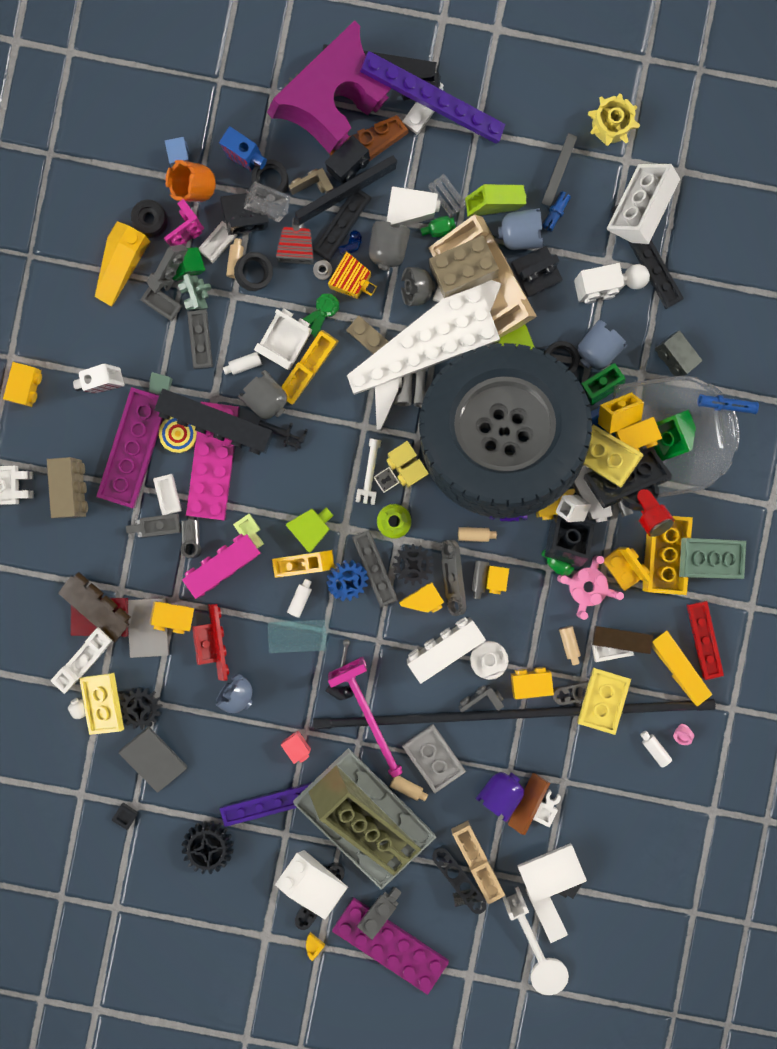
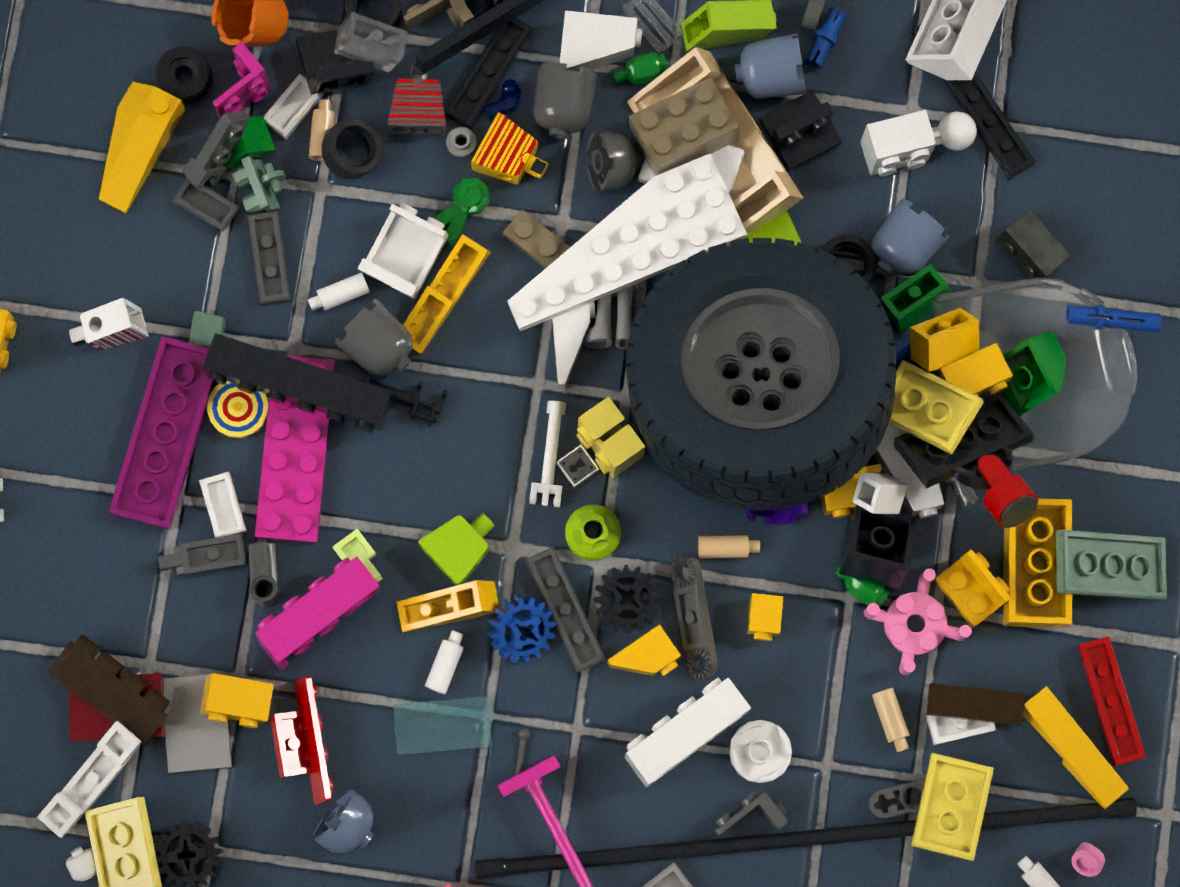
camera: 10 degrees left, 10 degrees down
(67, 488) = (63, 499): dark tan brick -> none
(340, 693) = (519, 817): black arm -> none
(479, 578) = (737, 617): dark grey cylinder -> none
(532, 683) = (832, 784): yellow brick -> none

